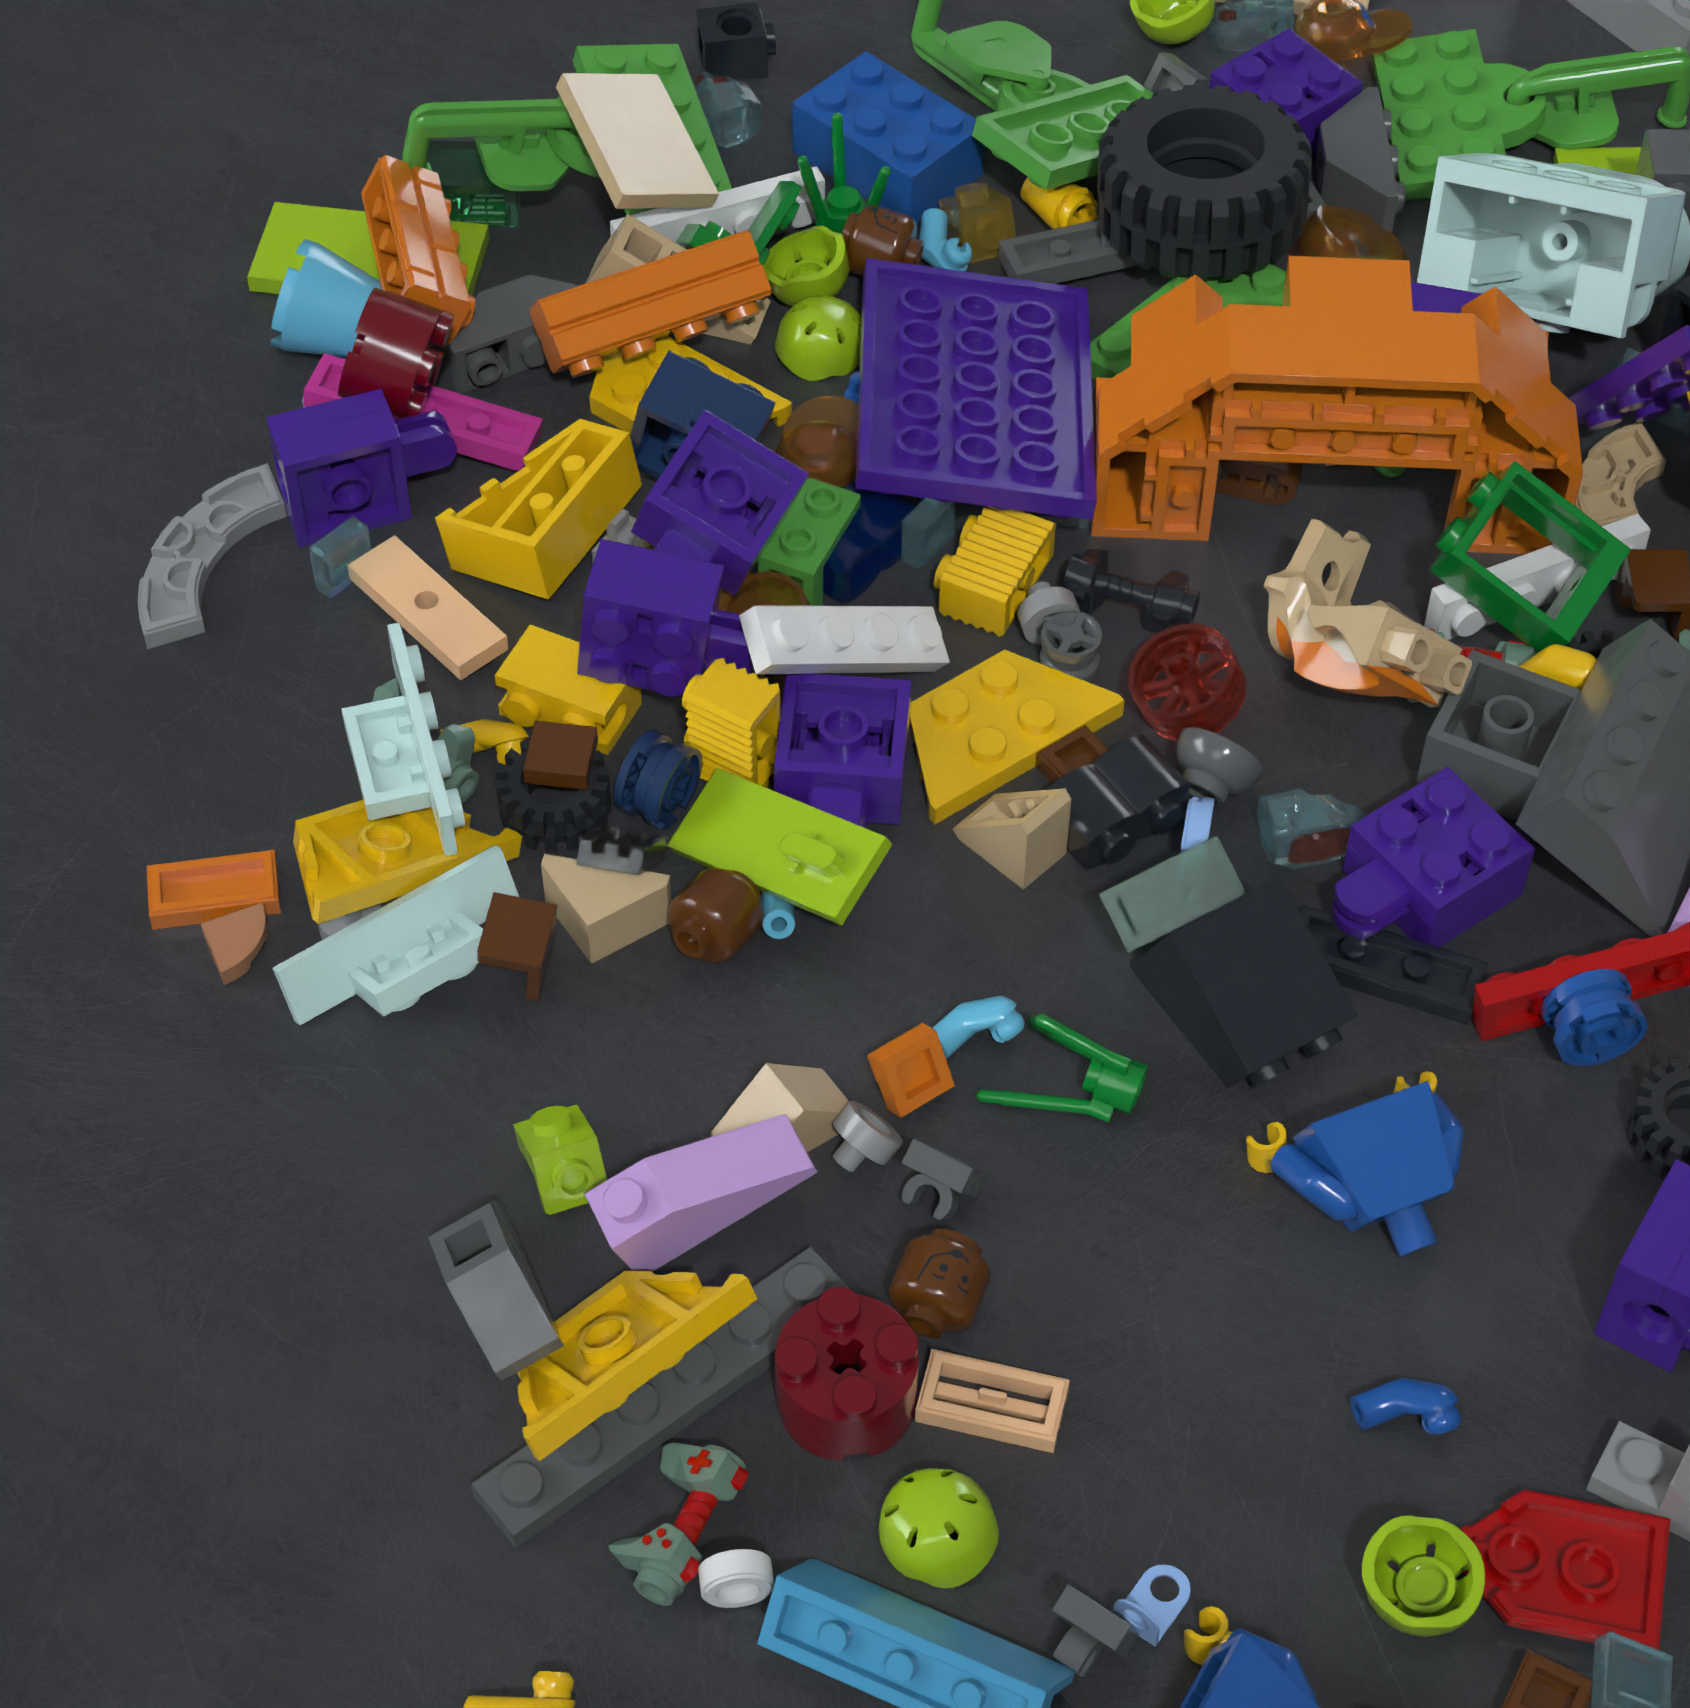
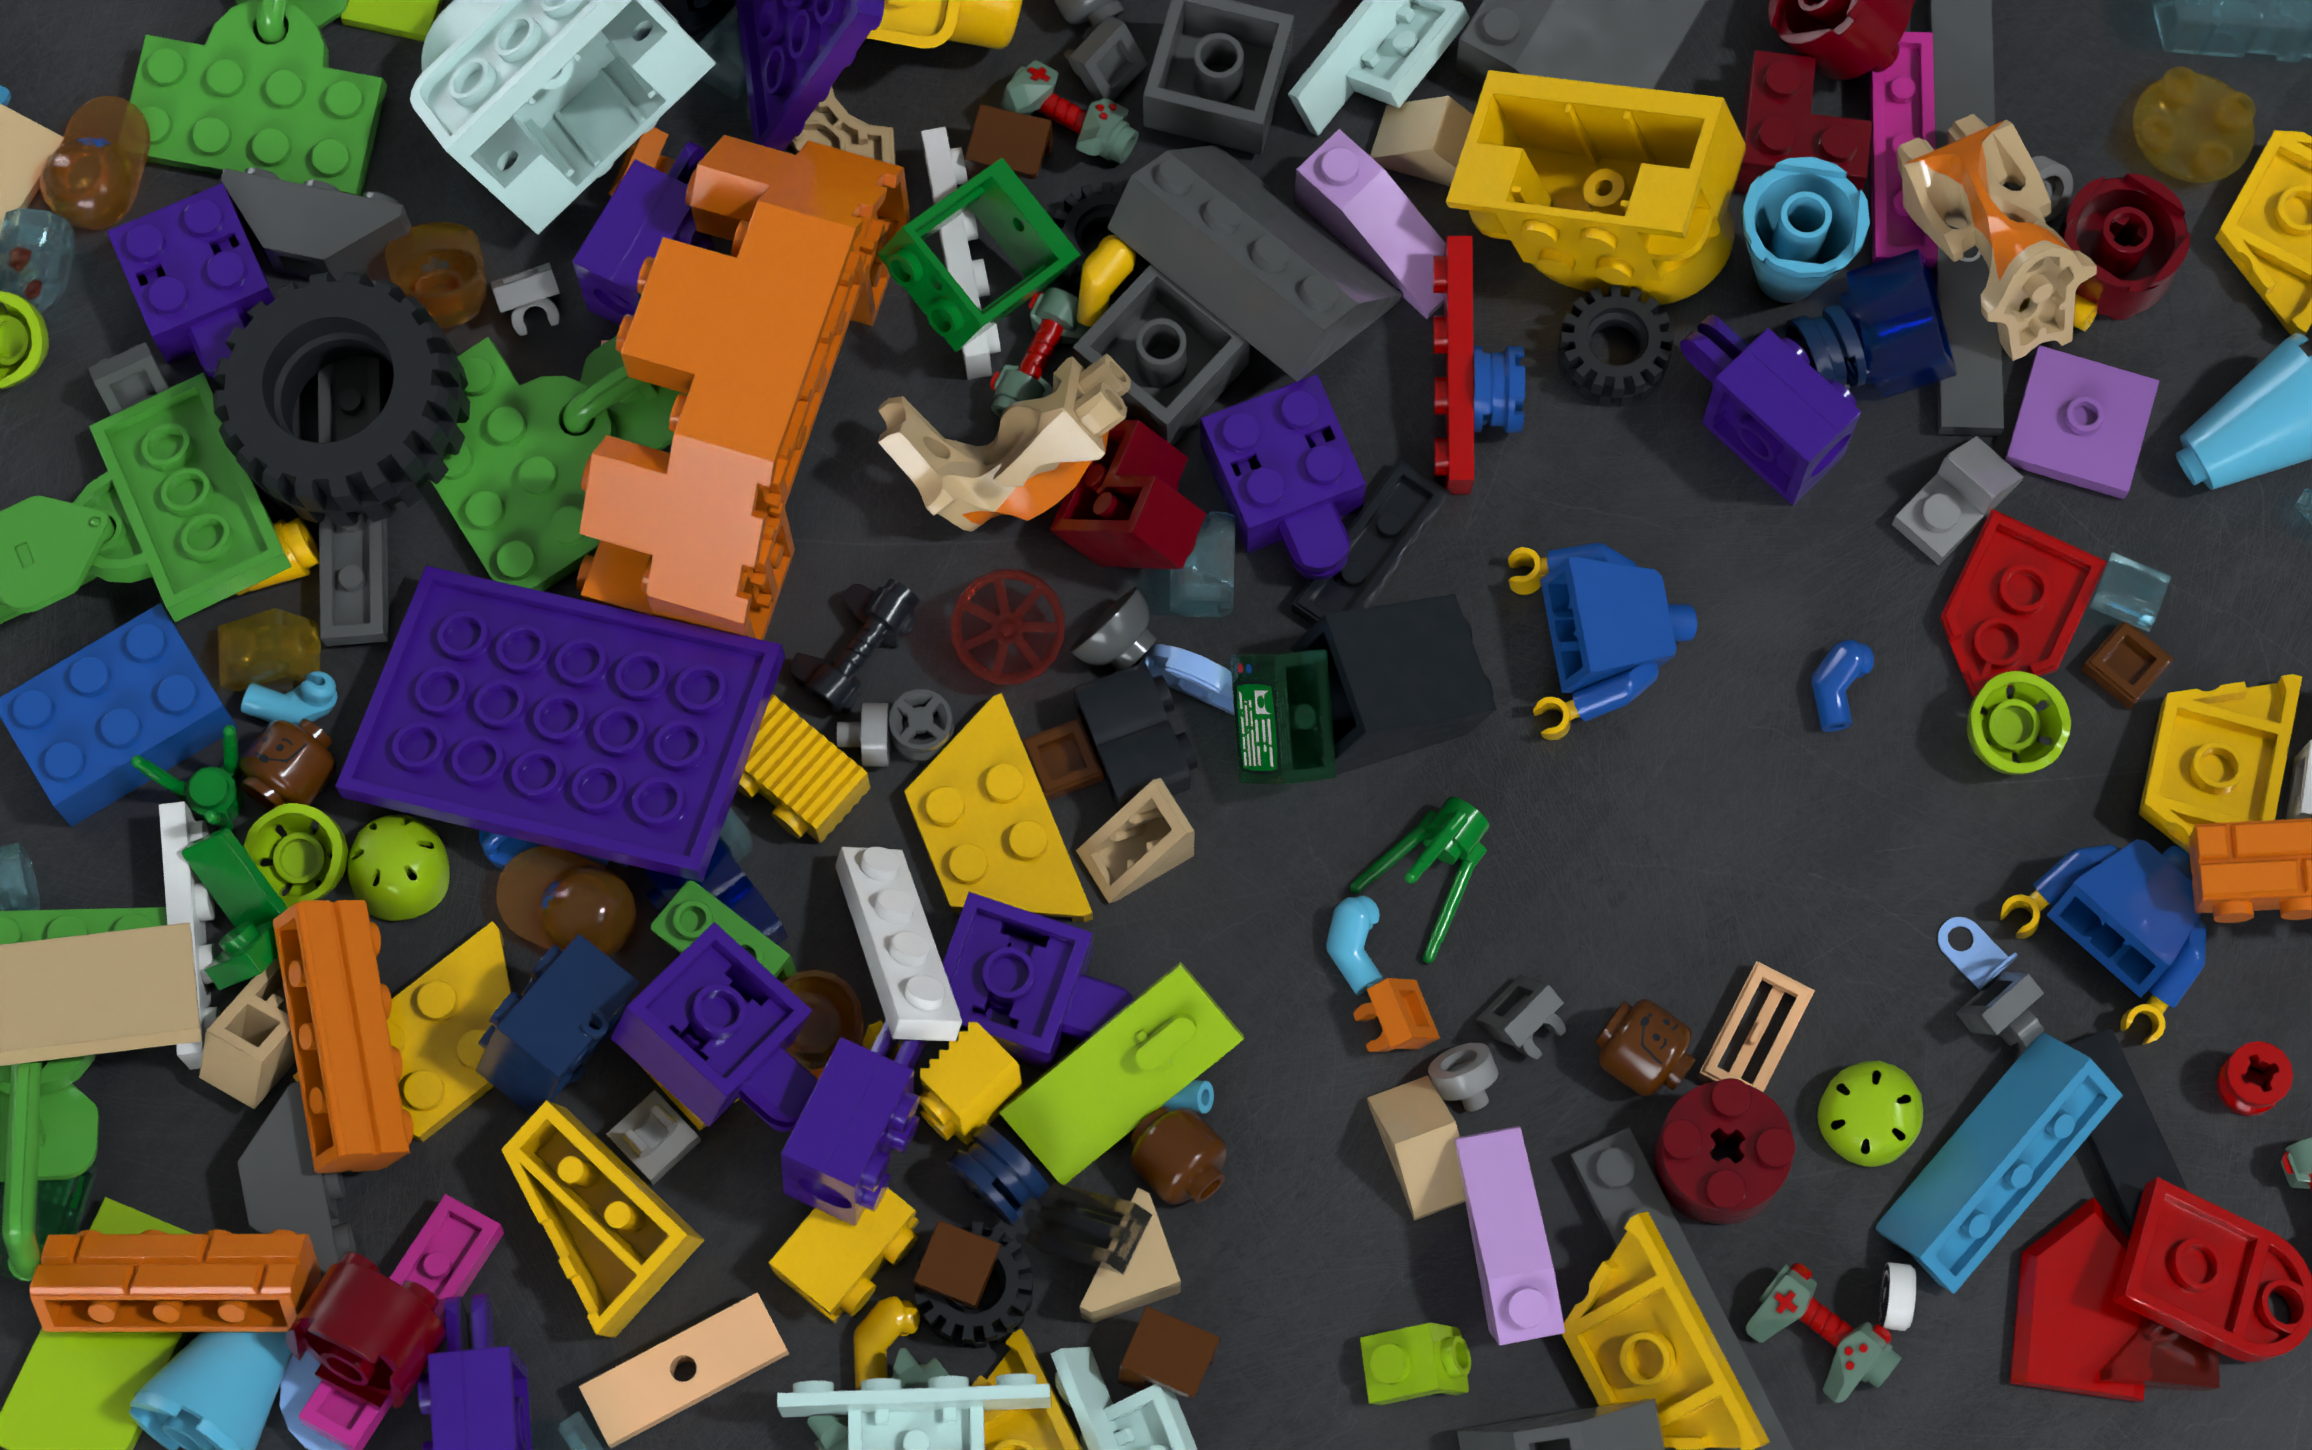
camera: 75 degrees left, 20 degrees up
(1349, 736) = (1129, 504): none -> dark red brick

